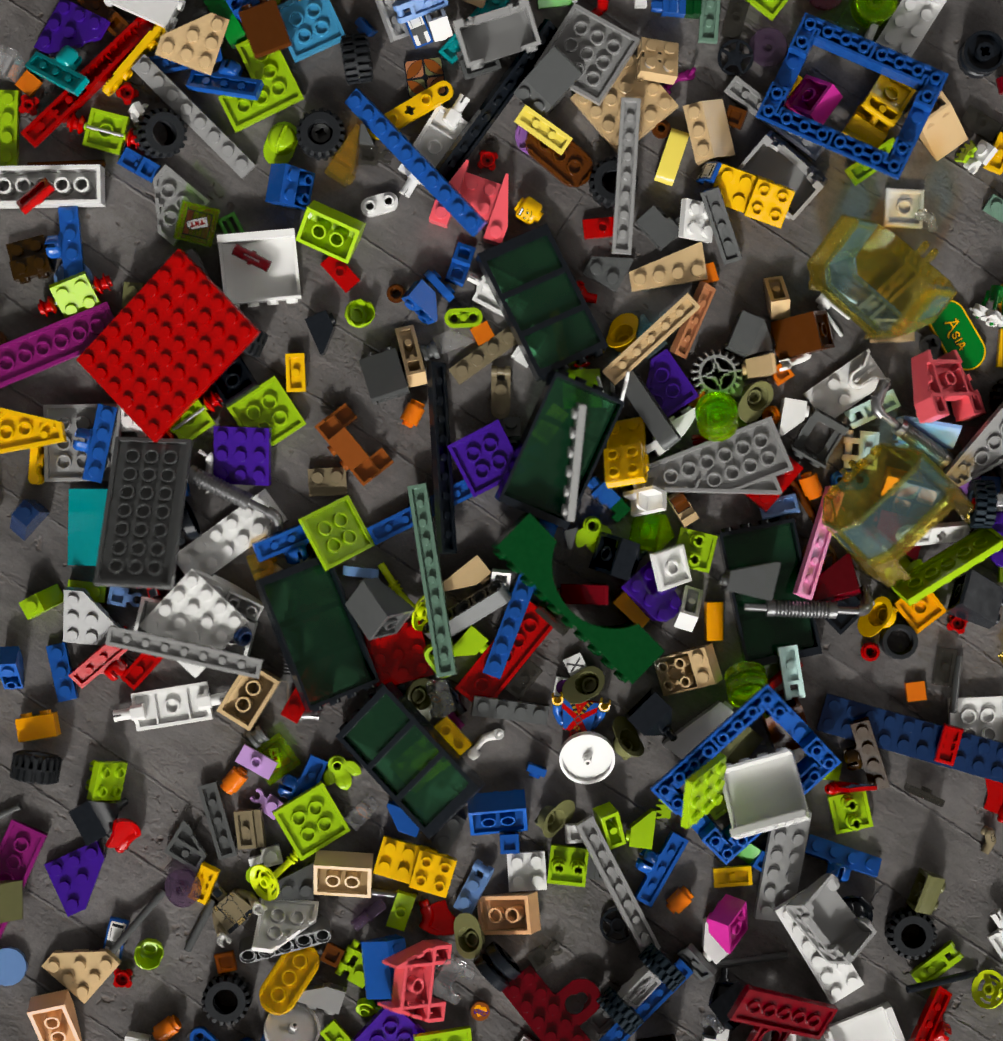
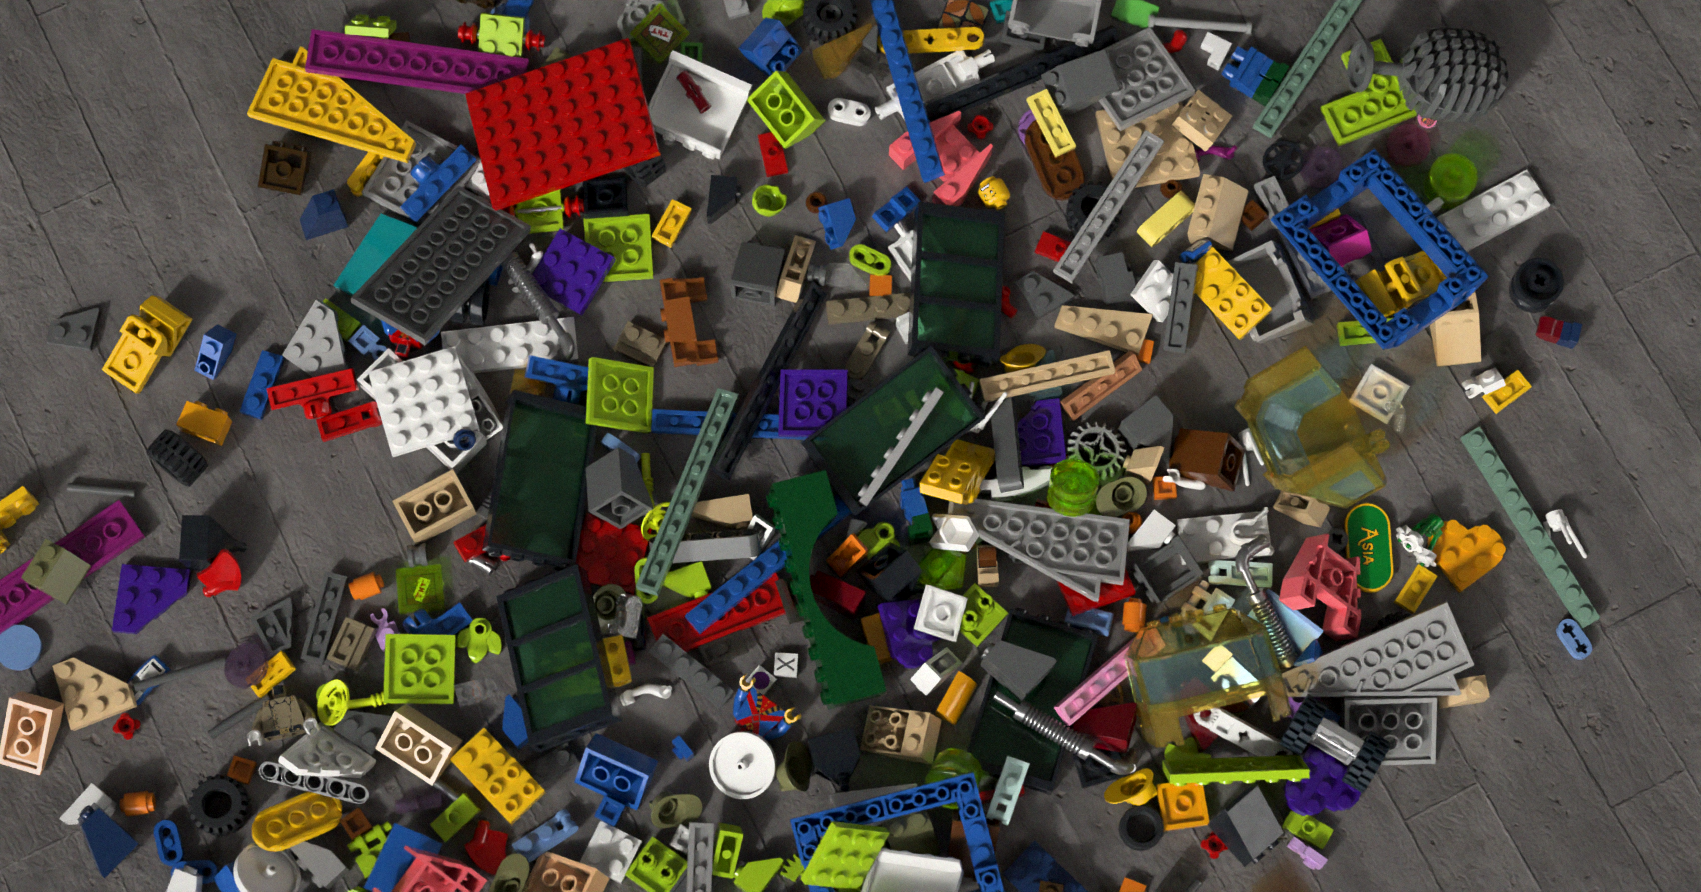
camera: 30 degrees right, 15 degrees down
(42, 601) = (285, 304): lime slope -> none
(106, 780) = (239, 512): lime plate -> none
(148, 953) = (169, 713): lime hair -> none
(170, 706) = (347, 476): white plate -> none
(184, 651) = (397, 419): light grey plate -> none
(256, 761) = (400, 579): lavender plate -> none
(269, 856) = (357, 684): white plate -> none
(412, 413) = (764, 324): orange brick -> none
(434, 279) = (866, 225): blue plate -> none
(575, 559) = (847, 555): none -> orange slope
(583, 685) = (783, 687): olive piece -> none
(777, 297) = (1200, 409): tan slope -> none
(803, 500) = (1118, 628): reddish brown bar -> none
(863, 651) = (1104, 816): red plate -> none
(959, 448) = (1310, 654): none -> blue slope
(967, 152) = (1471, 372): lime piece -> none

